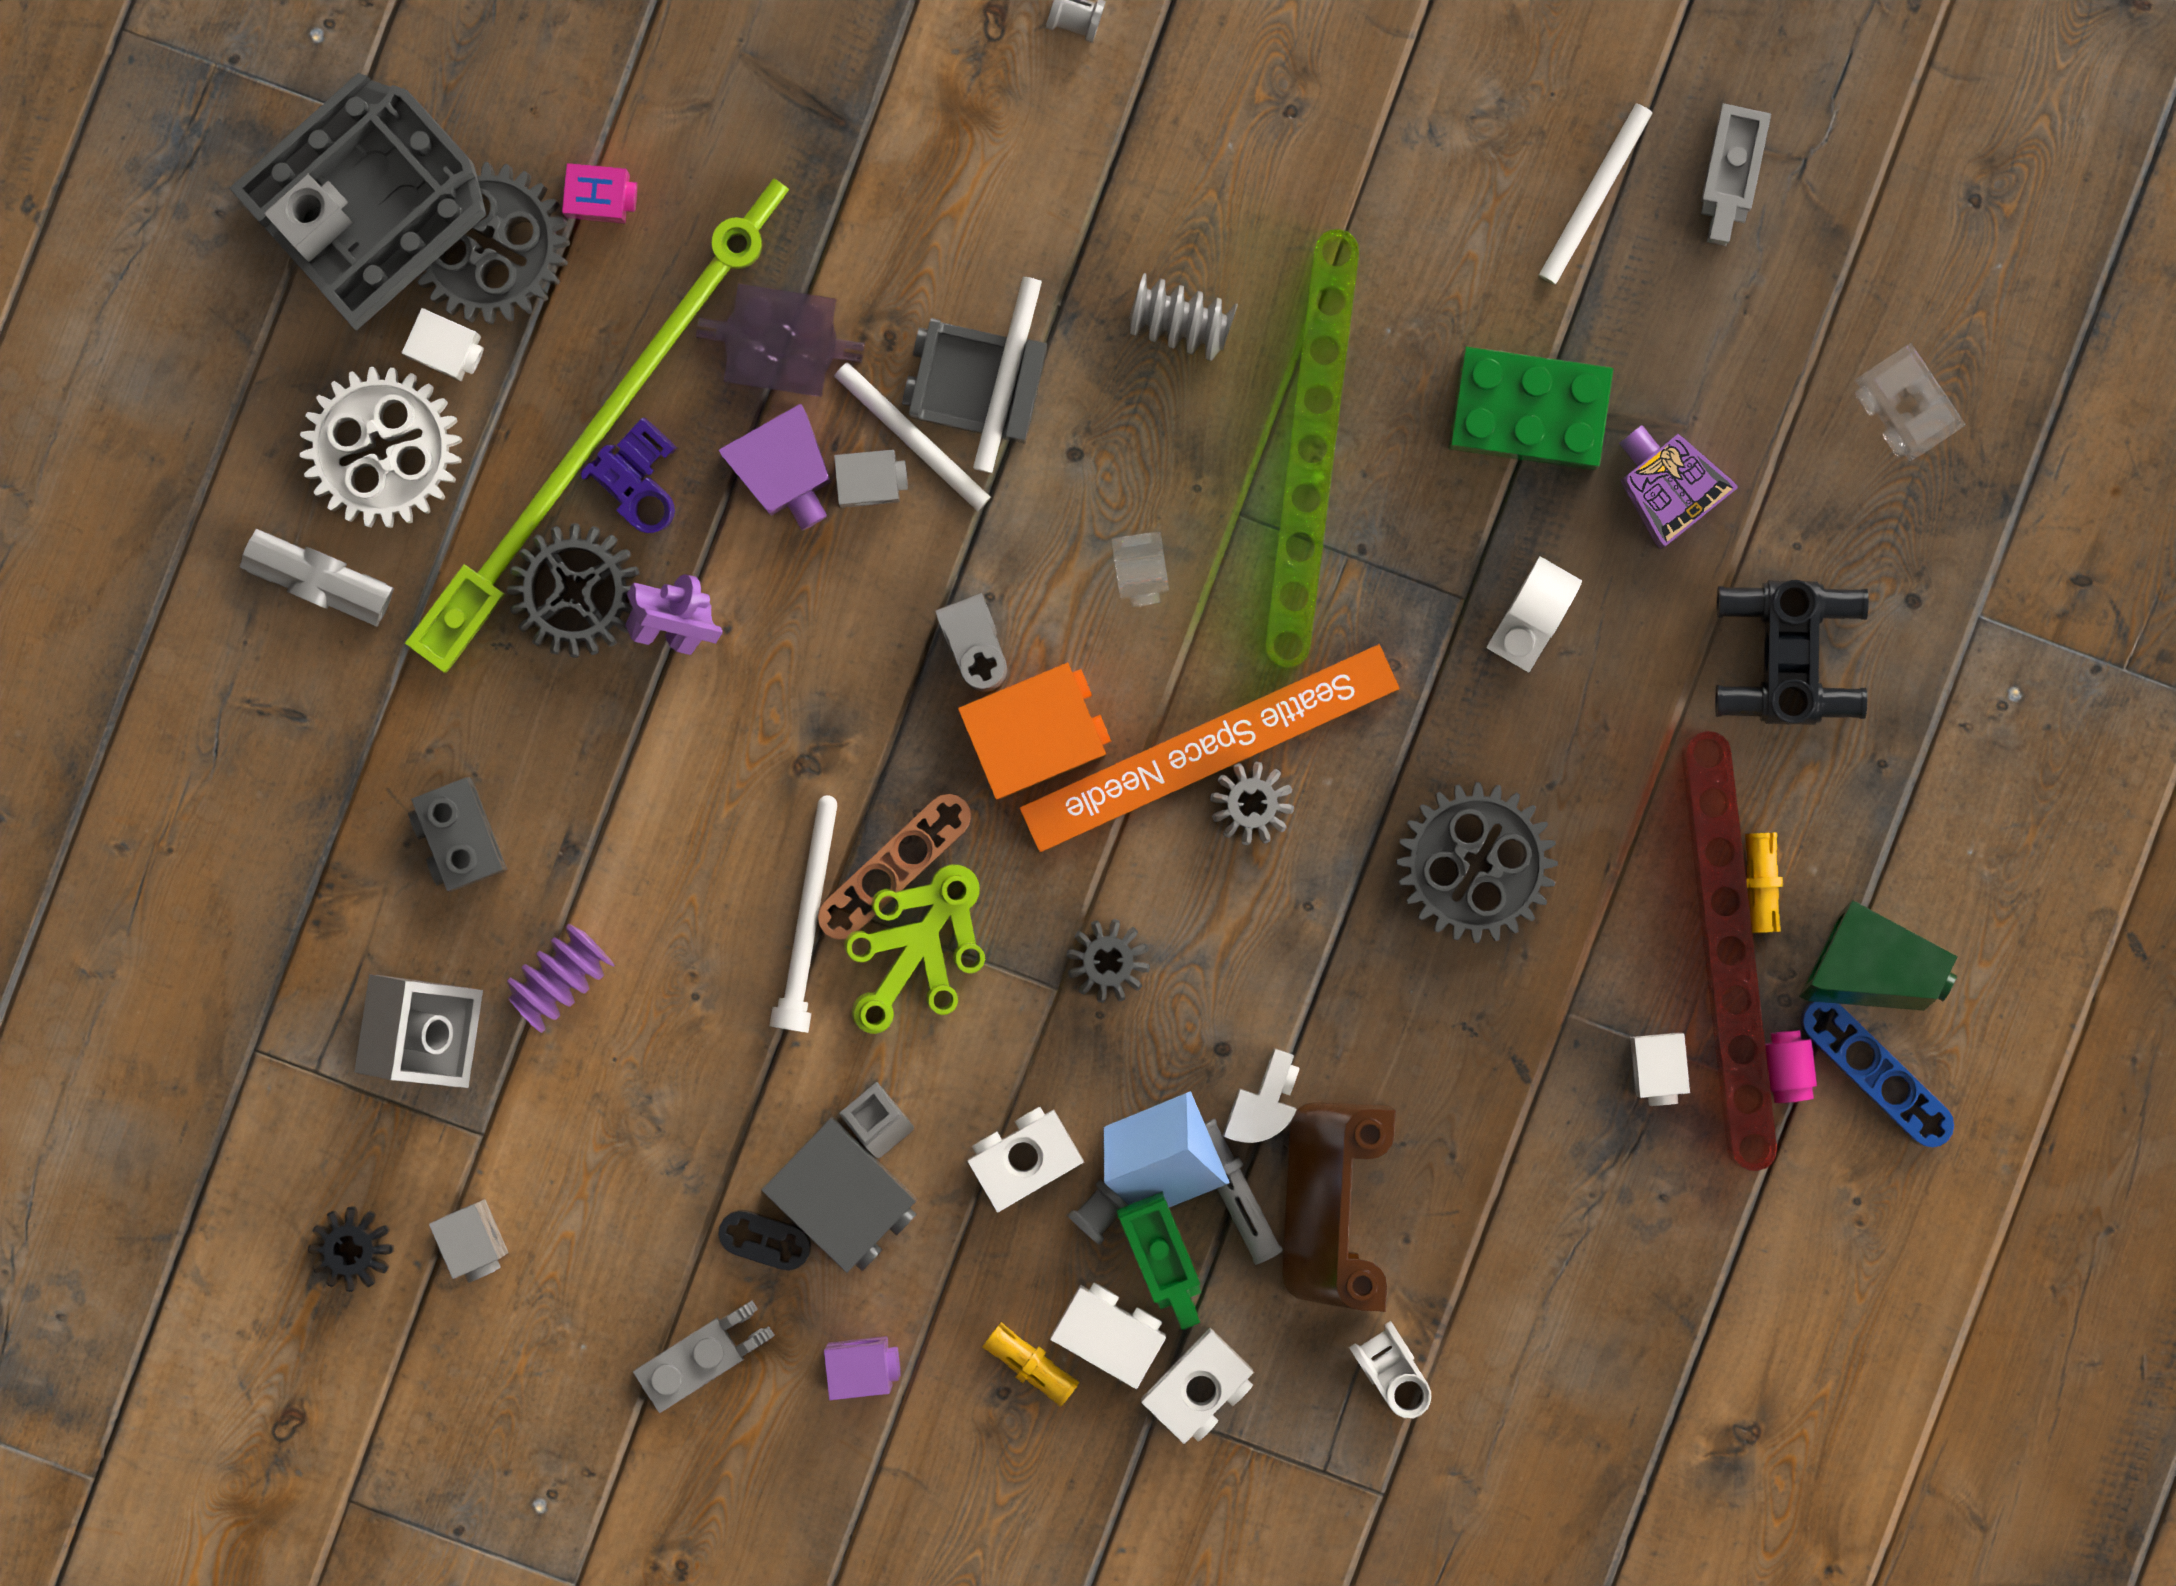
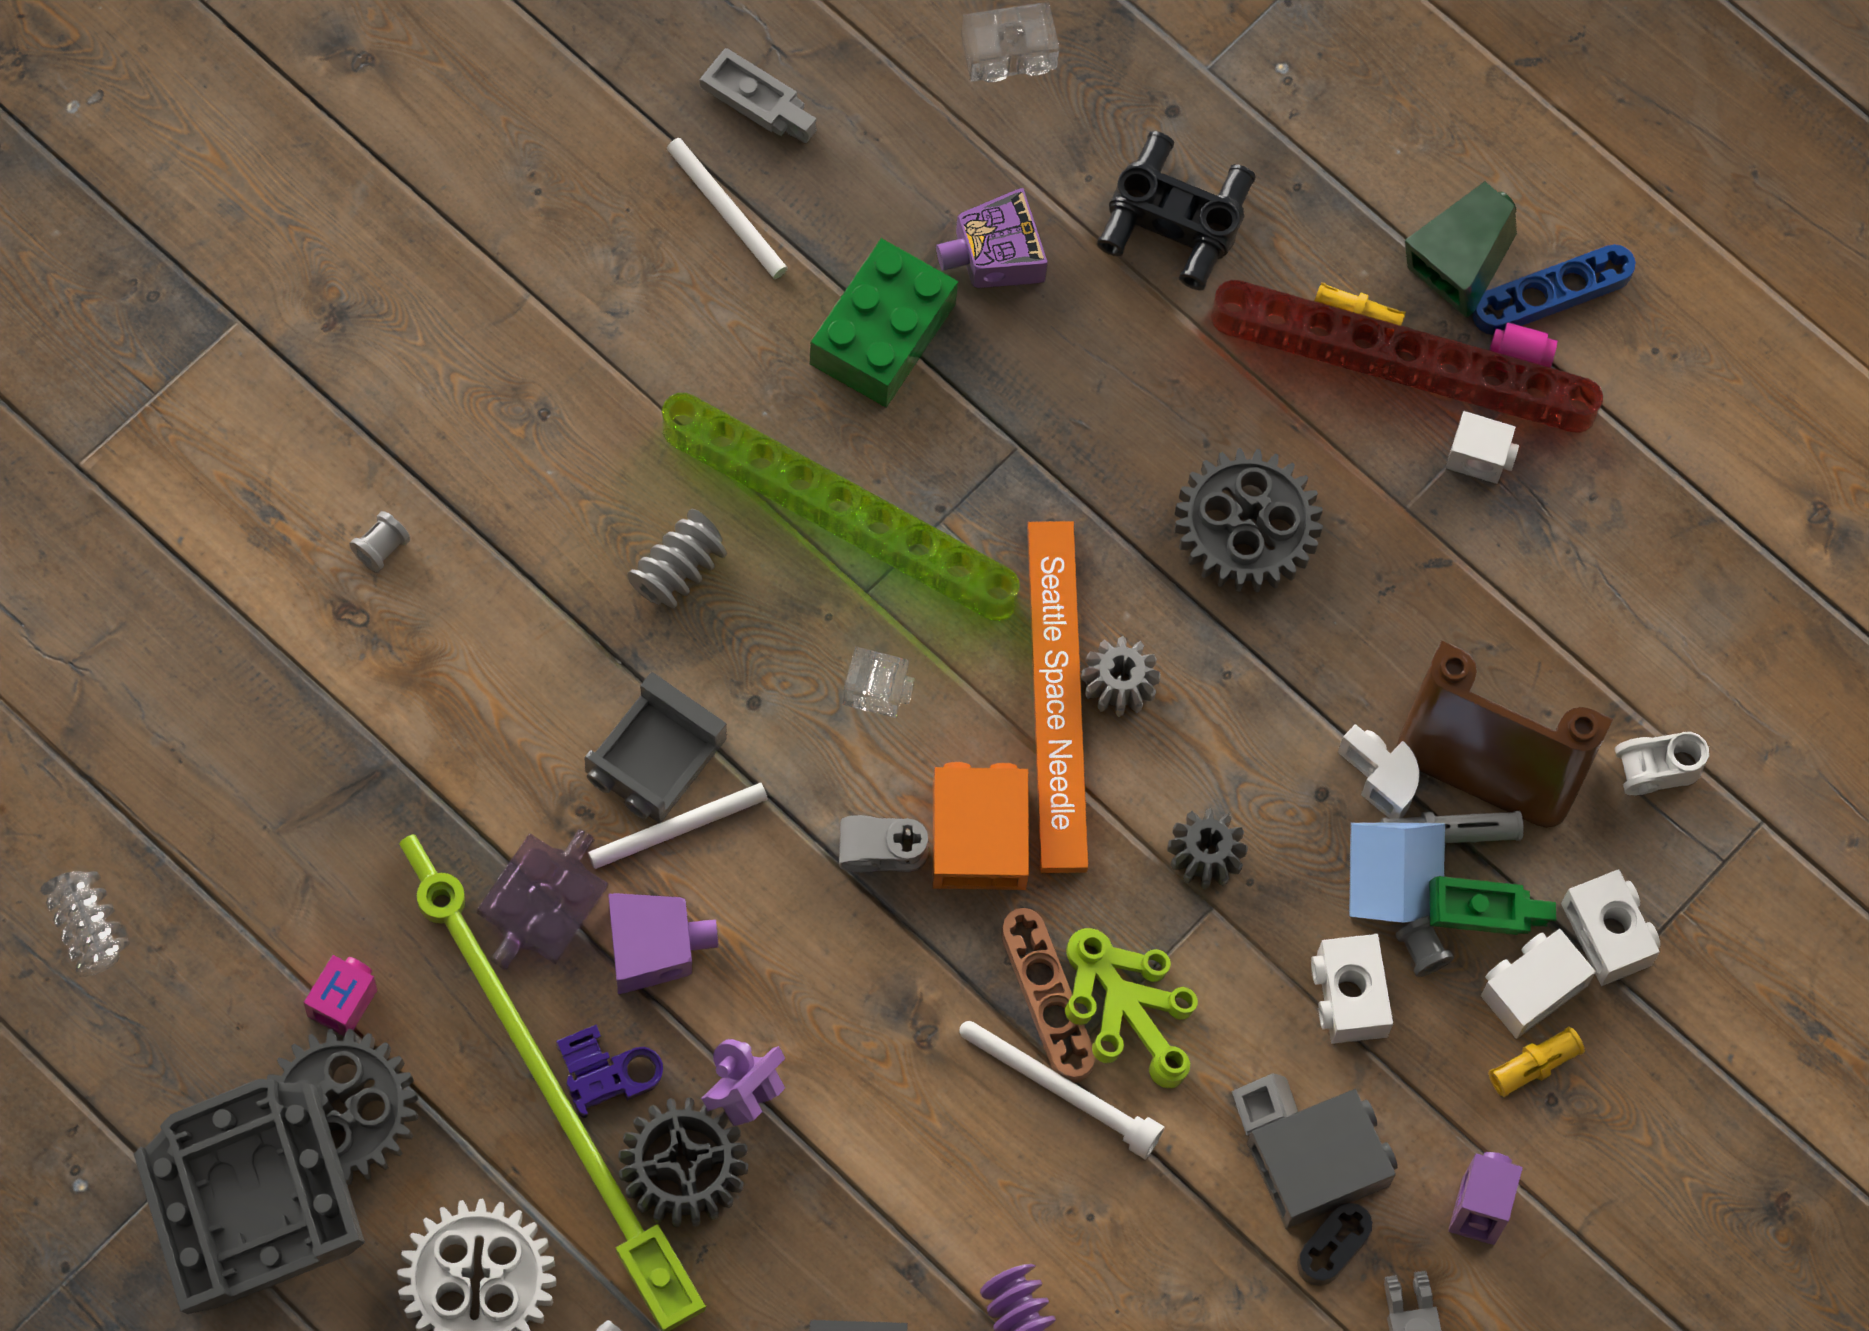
camera: 75 degrees left, 20 degrees down
(291, 209) = (256, 1256): light grey brick -> none
(443, 345) = (411, 1184): white brick -> none
(869, 478) = (699, 871): light grey brick -> none
(1007, 374) = (662, 720): white bar -> none
(1534, 614) = (1056, 385): white brick -> none

